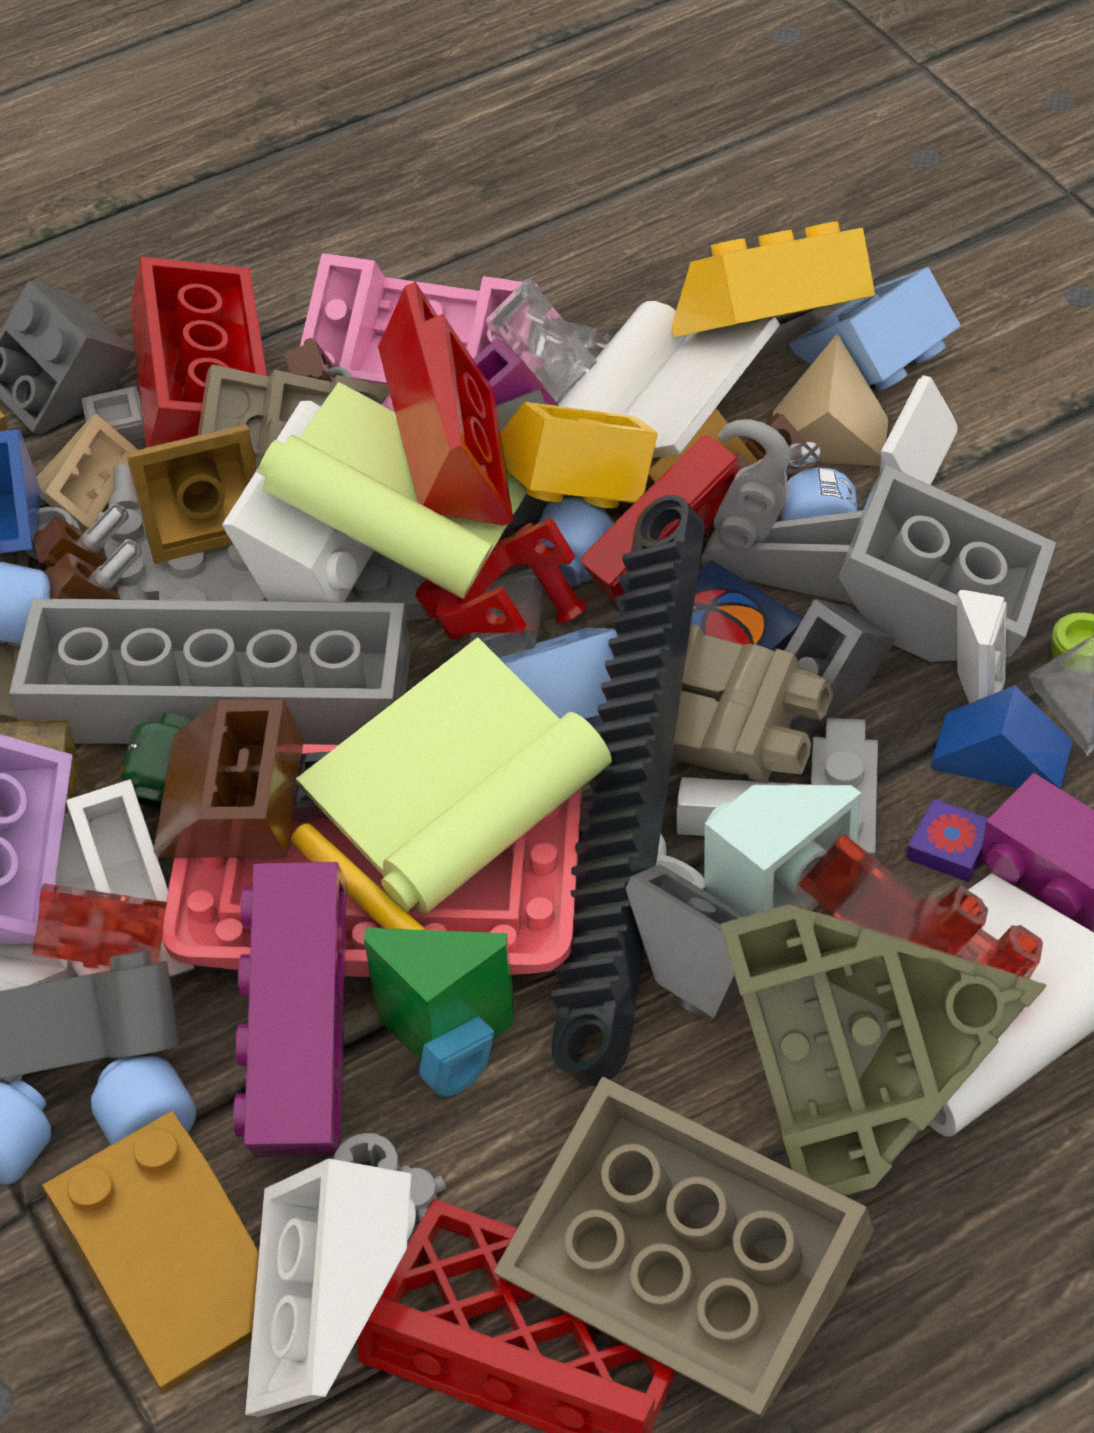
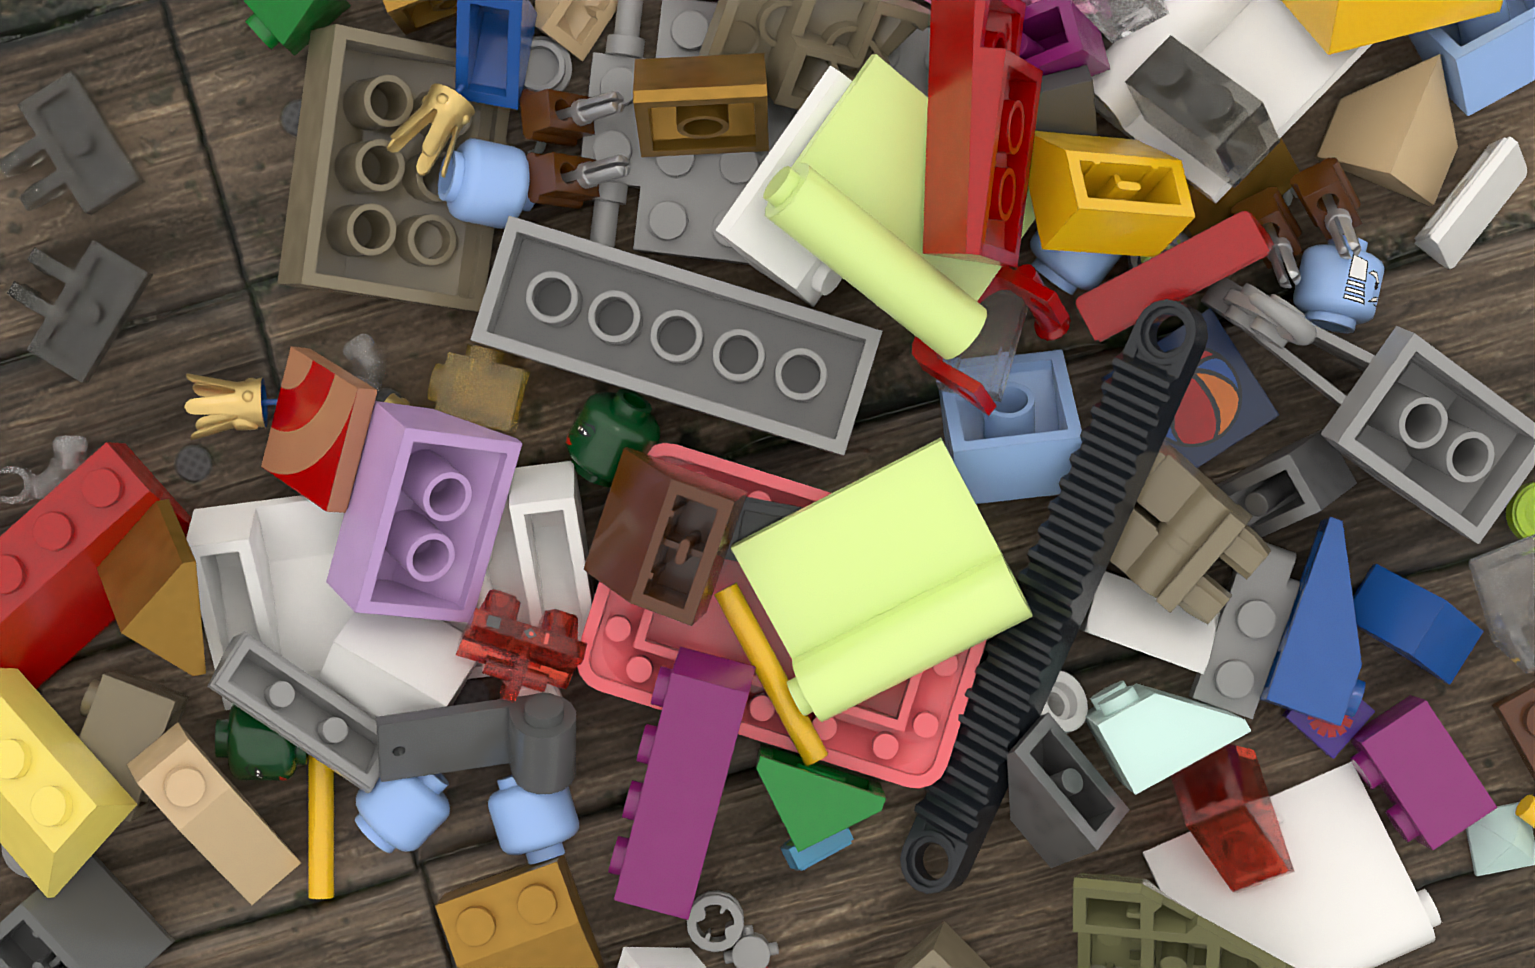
camera: 10 degrees right, 40 degrees up
(651, 381) = (1203, 111): none -> clear smoke brick
(914, 768) = (1320, 645): none -> blue slope
(956, 926) = (1294, 912): clear red hips -> none
(981, 643) = (1430, 545): white slope -> none

